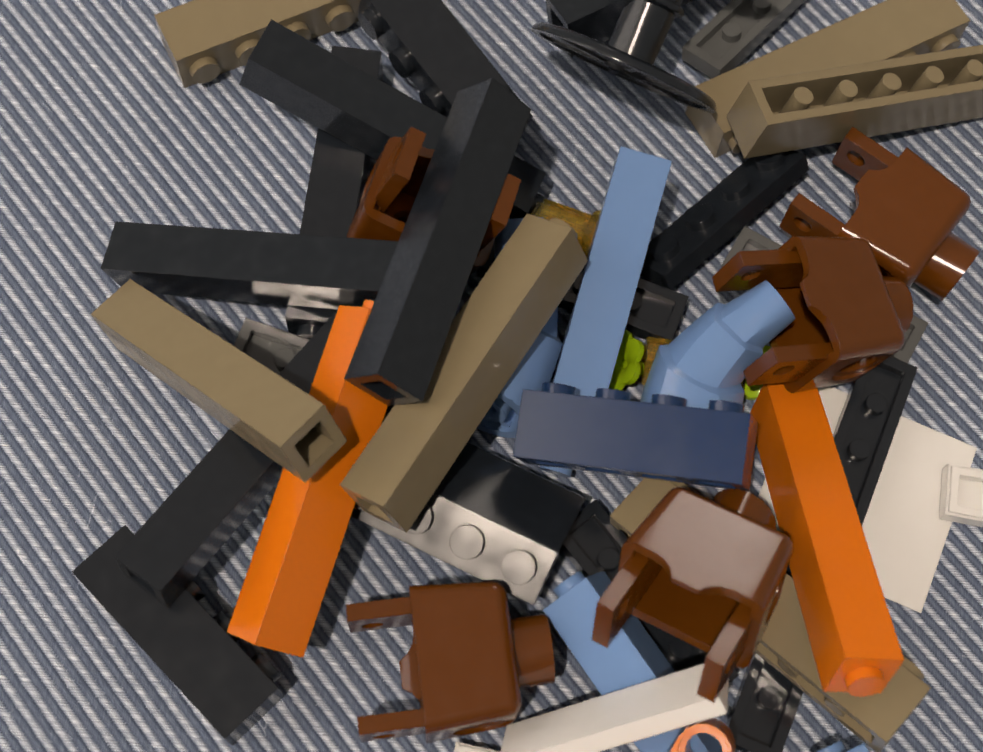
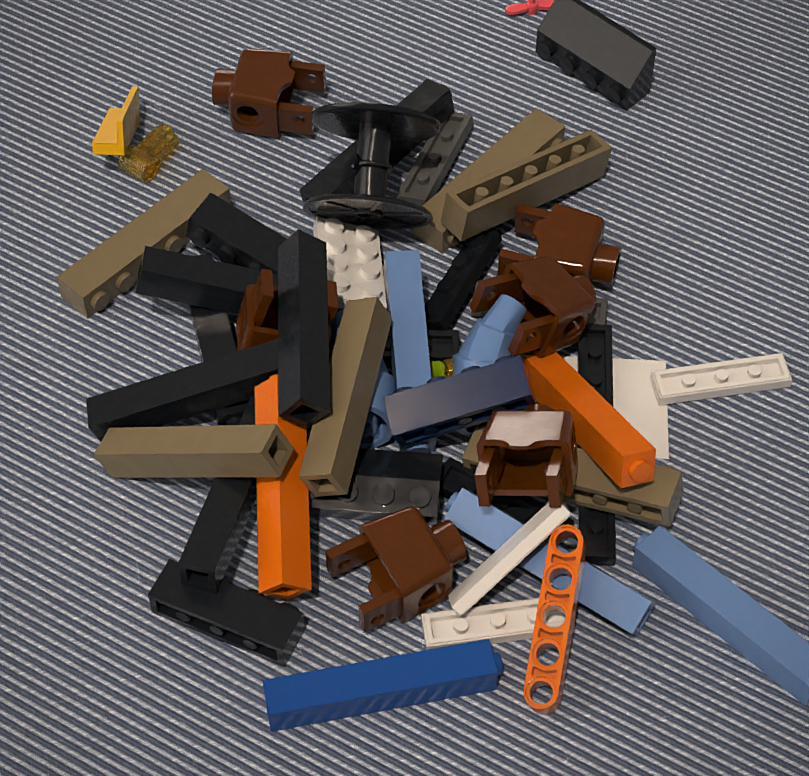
camera: 15 degrees left, 15 degrees down
(570, 140) = (352, 259): none -> white plate

